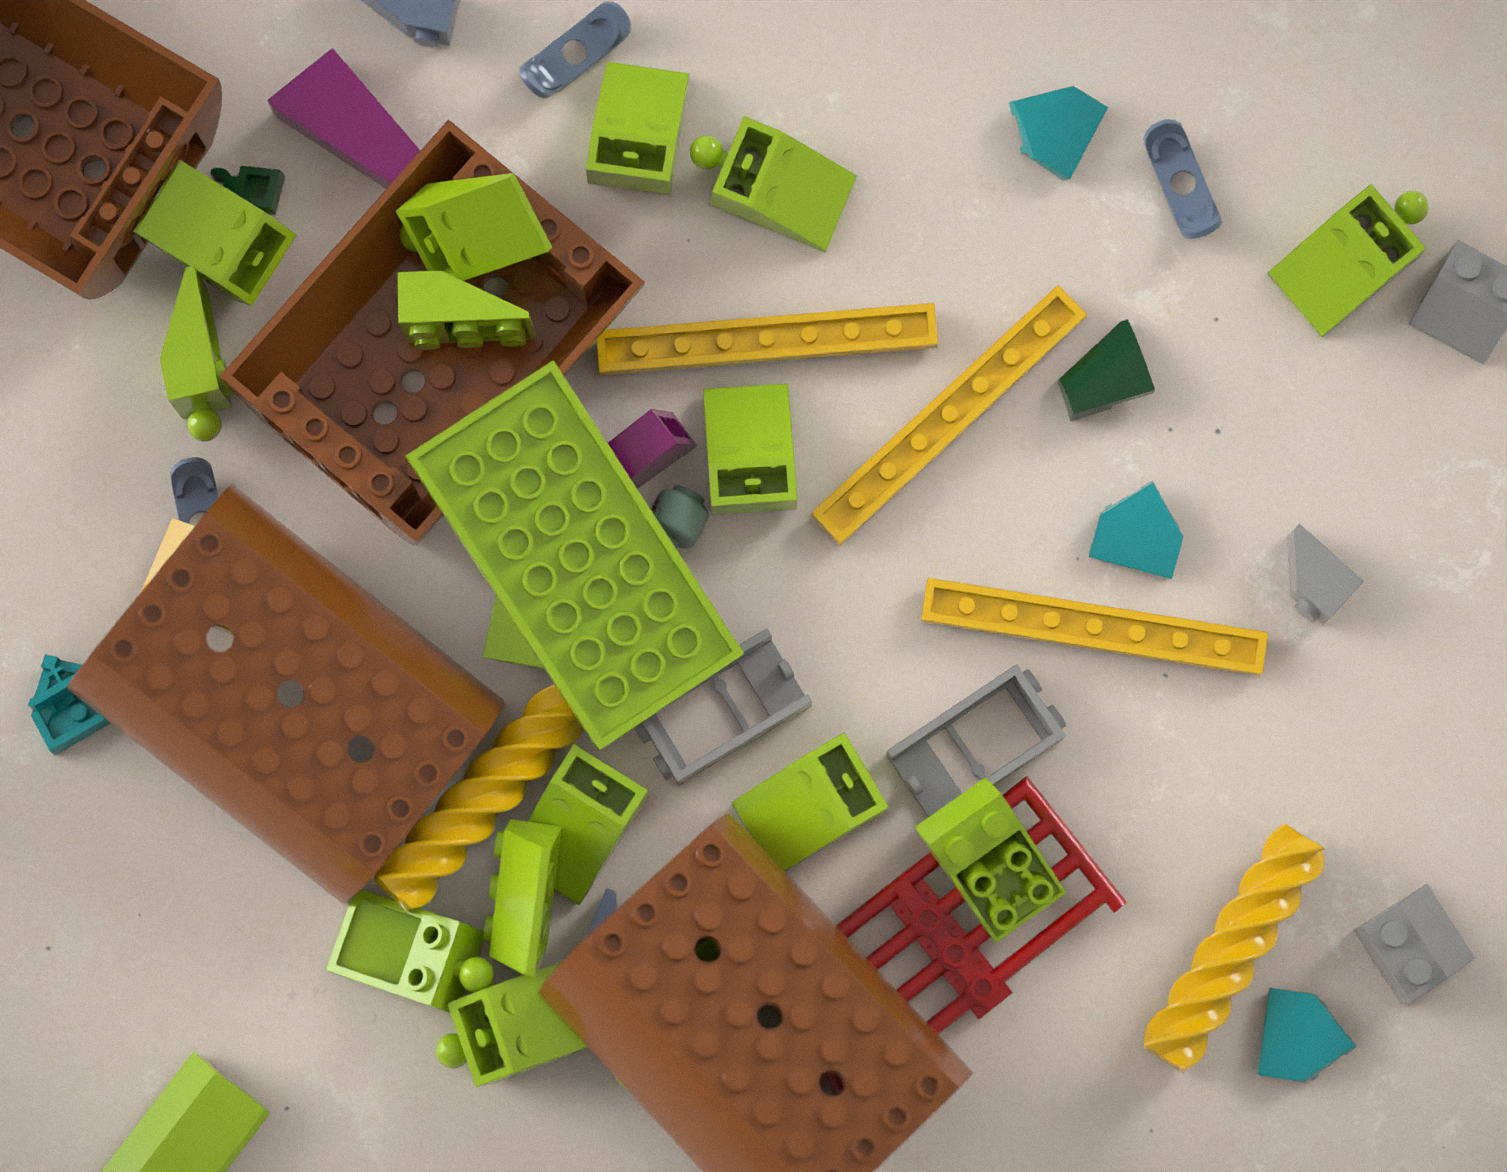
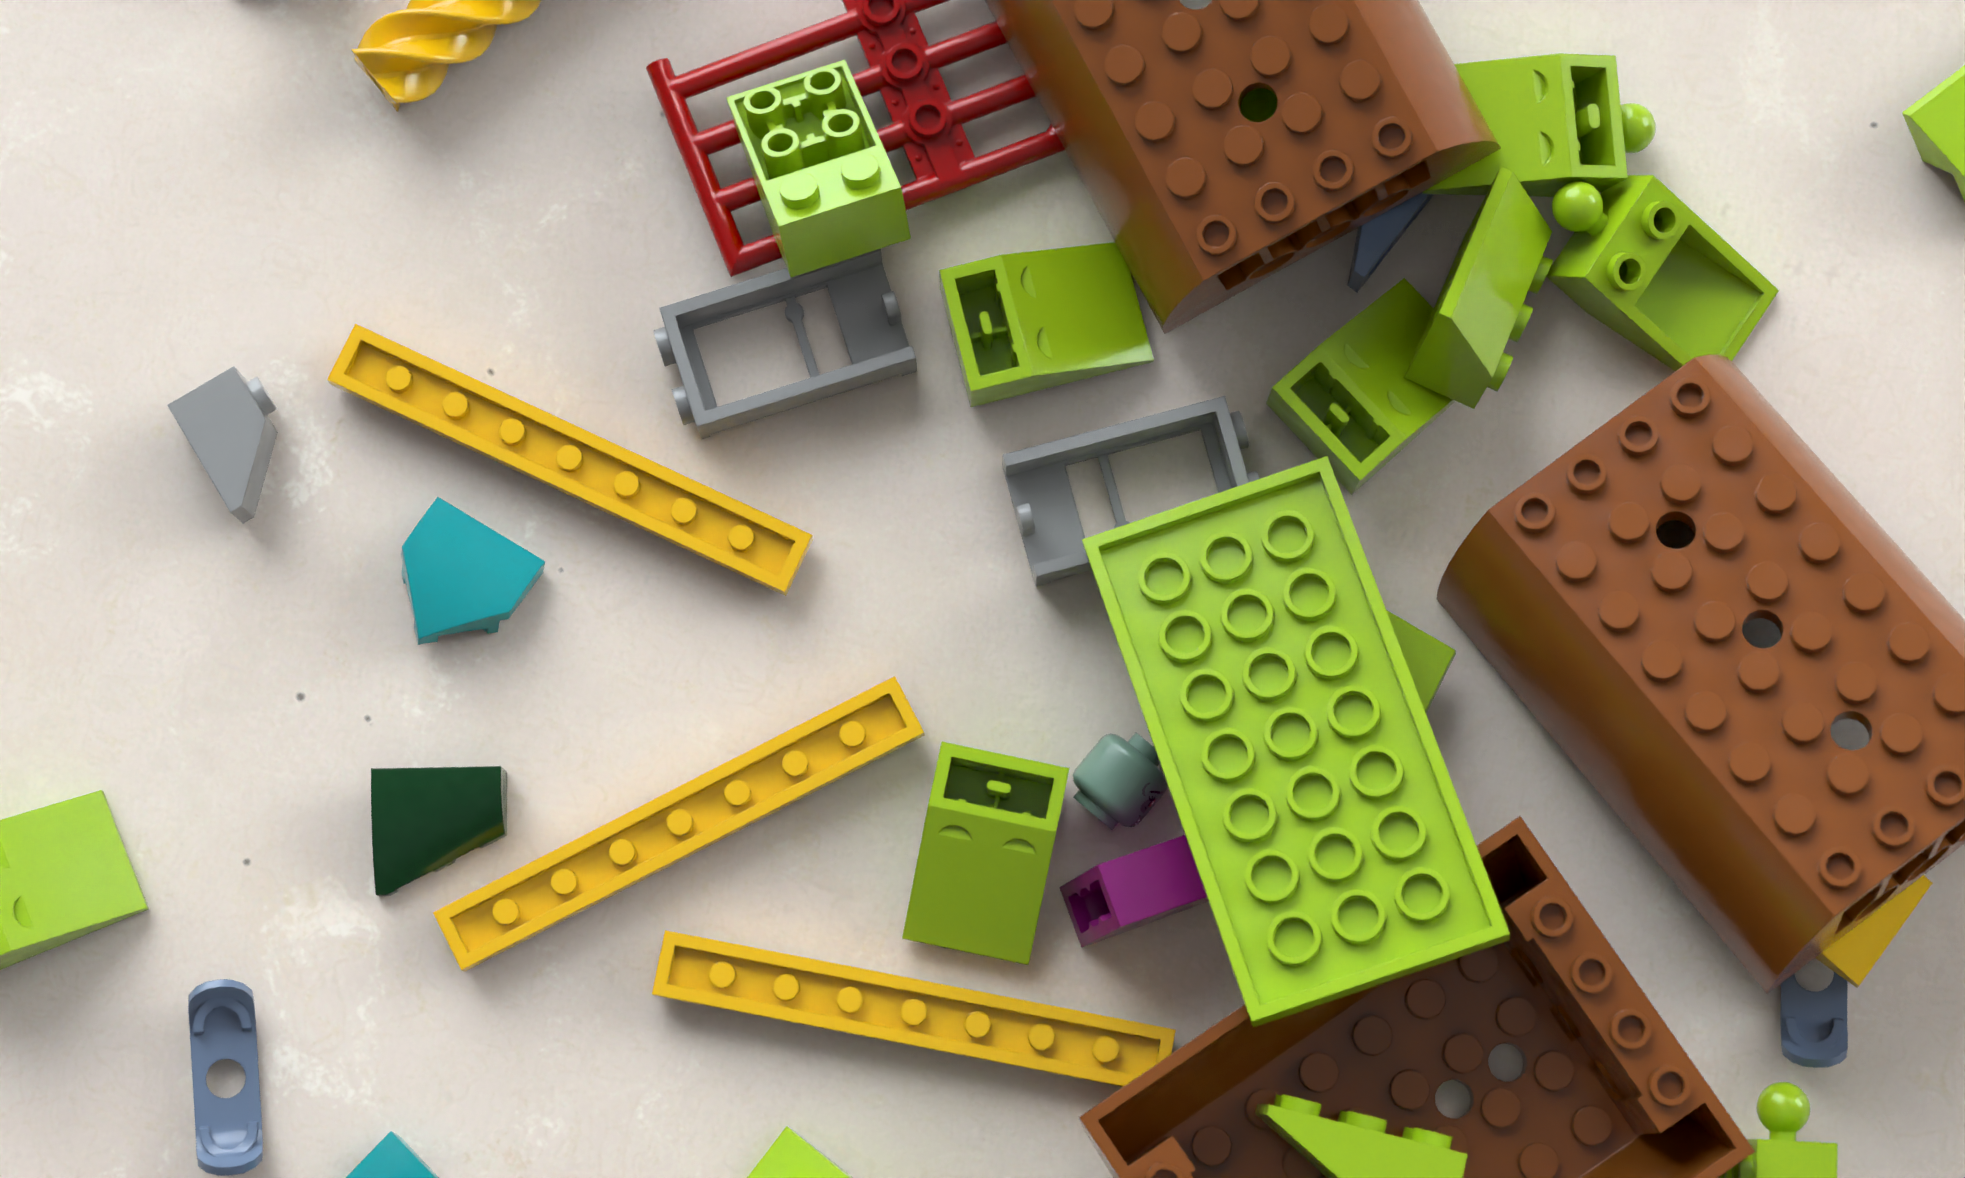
camera: 165 degrees left, 0 degrees up
(470, 807) = (1494, 453): yellow piece -> none

